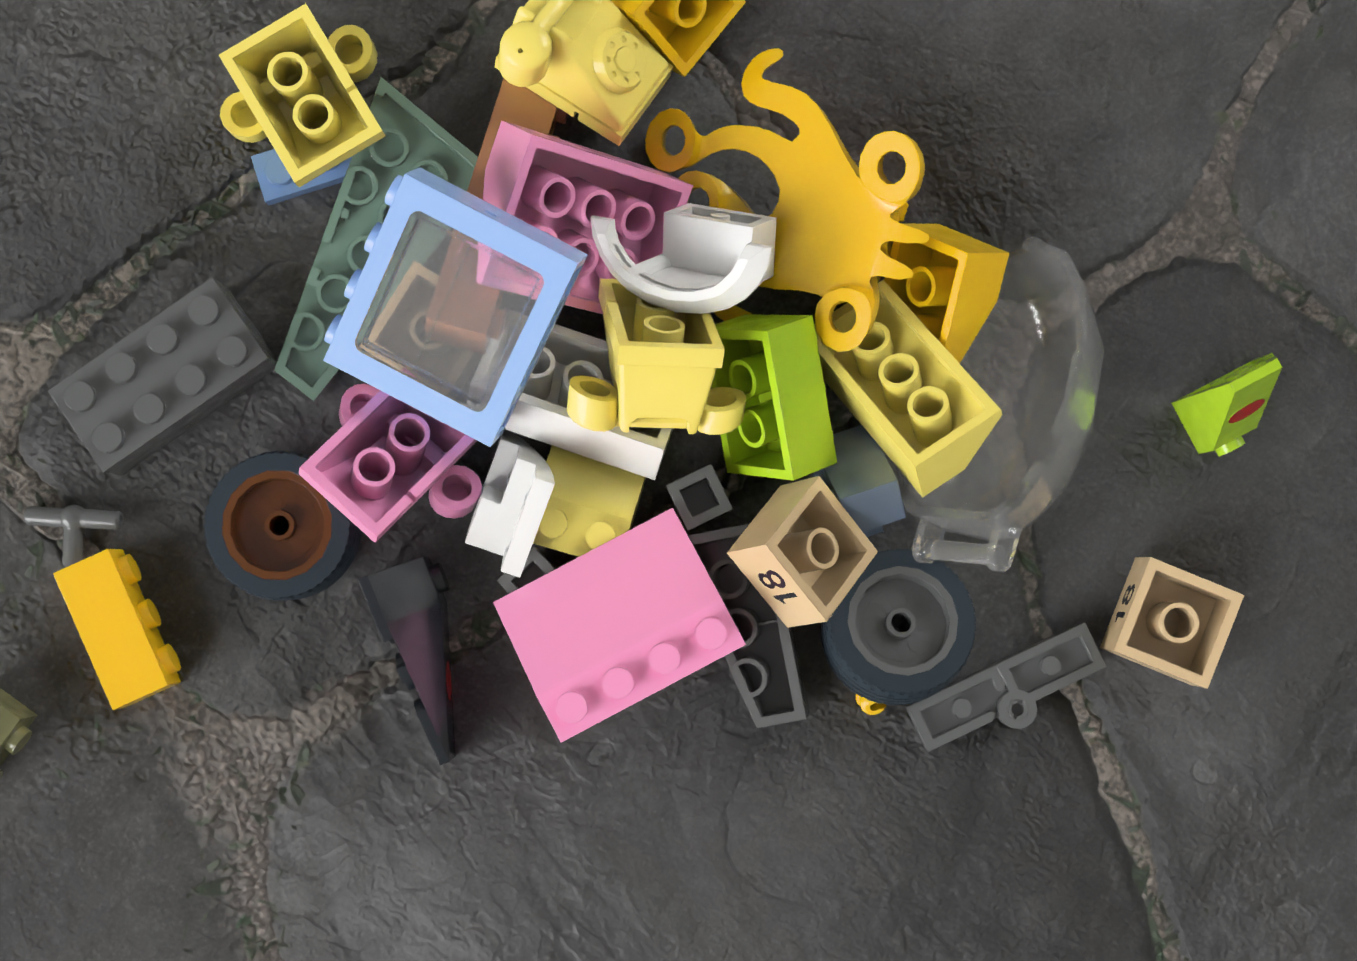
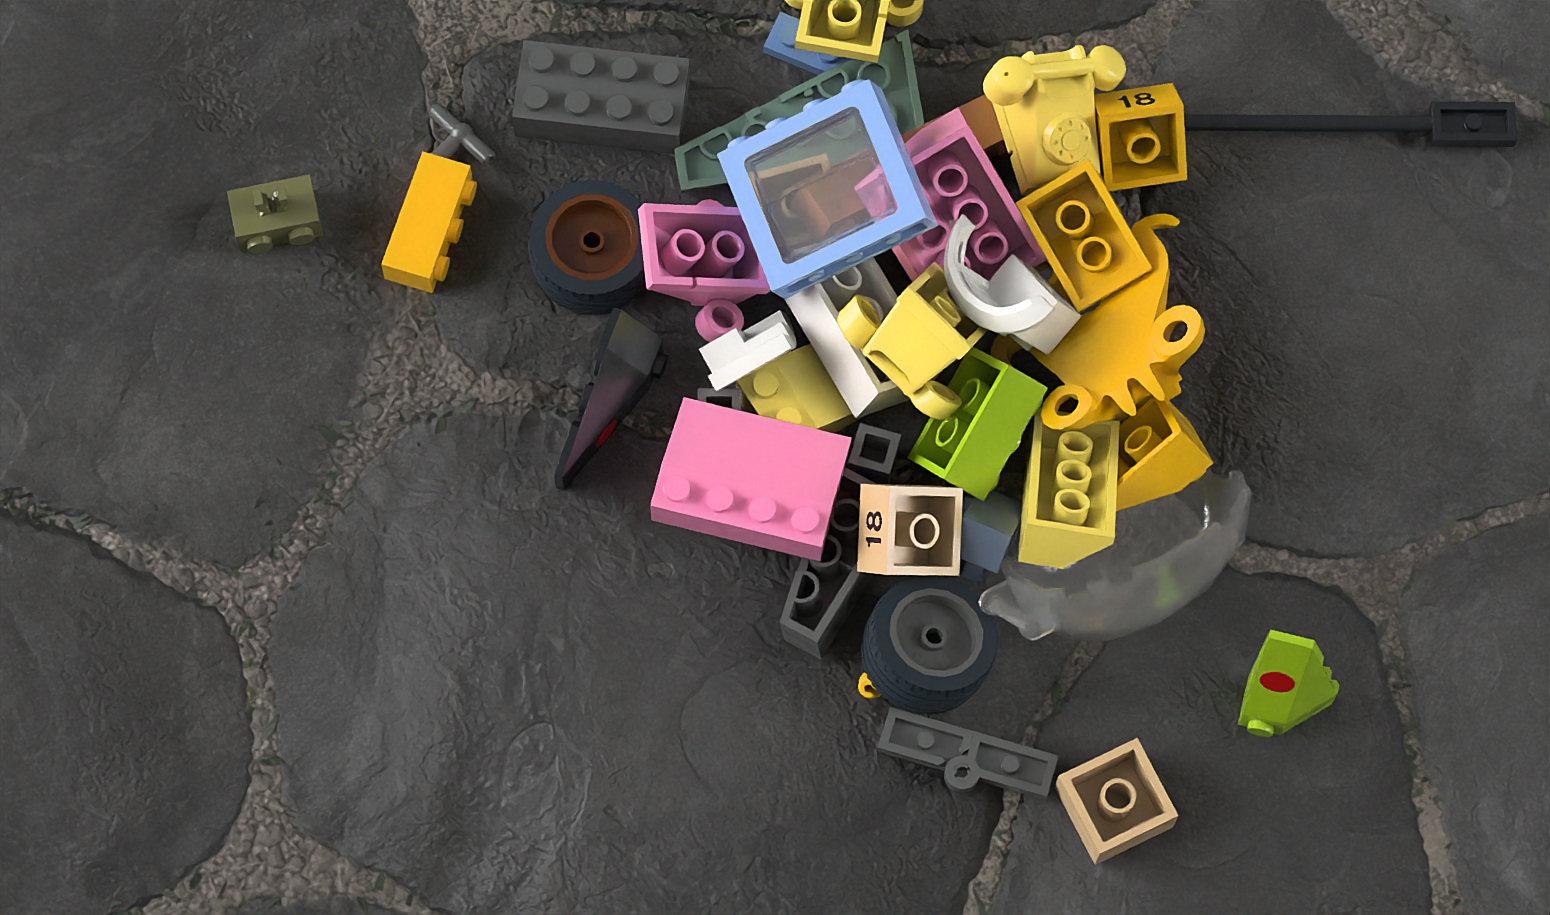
camera: 40 degrees right, 15 degrees down
(715, 139) = (1084, 235): none -> yellow slope

